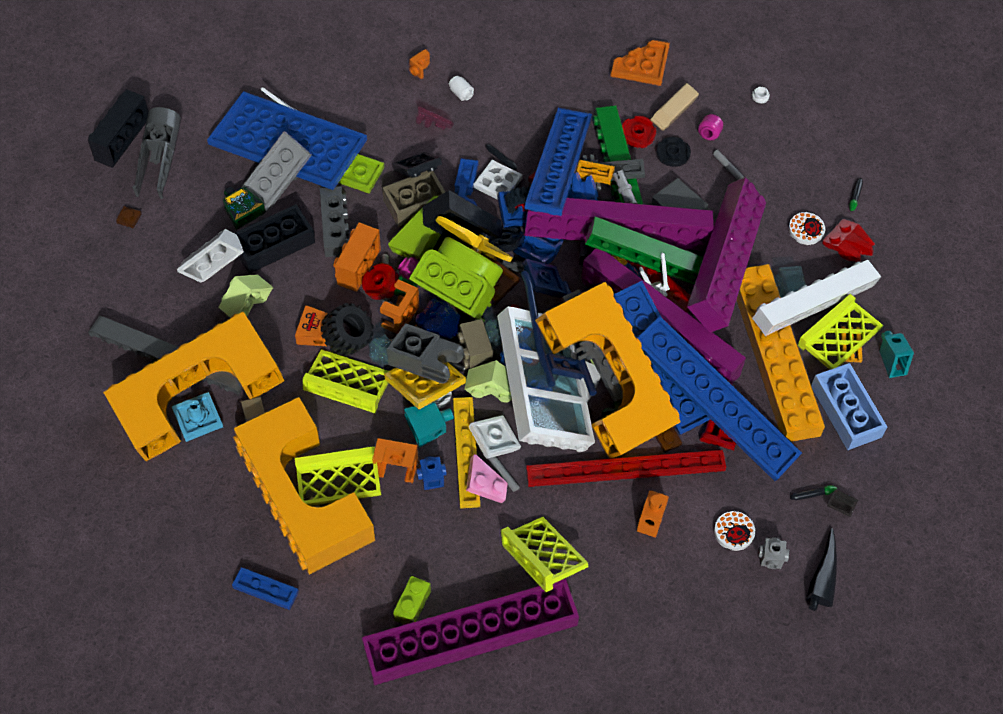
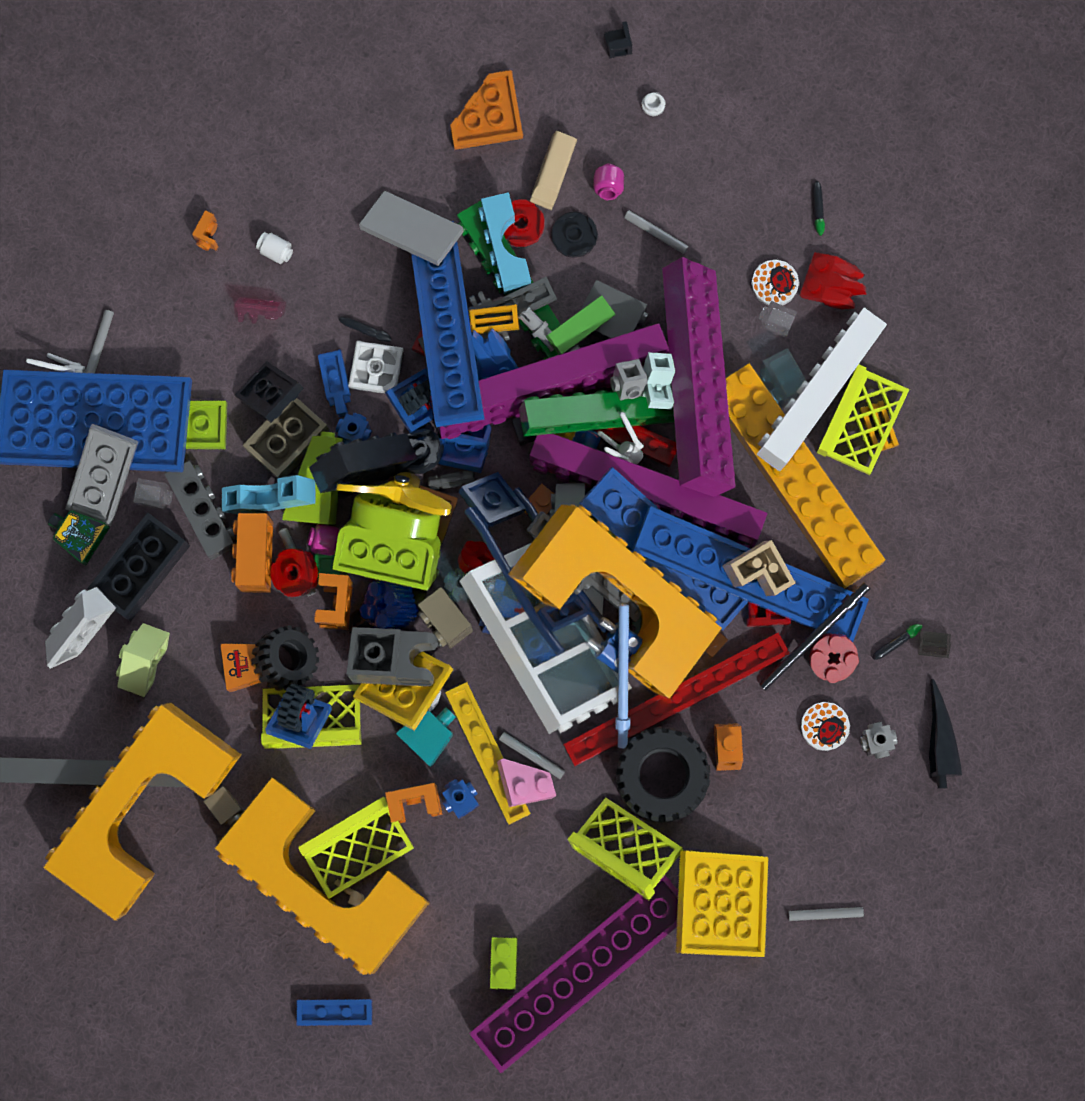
camera: 15 degrees left, 20 degrees up
(195, 410) = (144, 835): medium azure plate -> none
(305, 199) = (152, 494): none -> clear brick
(318, 100) = (99, 341): none -> light grey bar
(338, 366) = (298, 717): none -> plate
(378, 350) = (334, 673): clear light blue brick -> none
(403, 222) = (287, 493): none -> medium azure arch
(488, 380) = (477, 656): yellowish green brick -> none
(494, 436) = (512, 722): white plate -> none
(560, 106) = (411, 228): none -> light grey tile
(578, 462) = (623, 720): none -> light blue bar
(596, 406) = (608, 651): none -> blue piece
(599, 489) = (668, 741): none -> black tyre
(602, 621) = (722, 904): none -> yellow plate
(625, 116) = (499, 215): none -> medium azure arch
(656, 195) = (580, 325): none -> bright green tile
(676, 233) = (629, 380): none -> light grey brick
(683, 668) = (826, 914): none -> light grey bar
(697, 243) = (659, 372): none -> light aqua brick
(729, 385) = (763, 564): none -> tan brick
(751, 54) = (619, 41): none -> black panel
(753, 492) = (836, 670): none -> plate
(785, 443) = (849, 602): none -> black bar
(800, 248) = (777, 319): none -> clear brick
(848, 406) = (903, 517): light blue brick -> none
(895, 350) = (935, 427): teal torso -> none

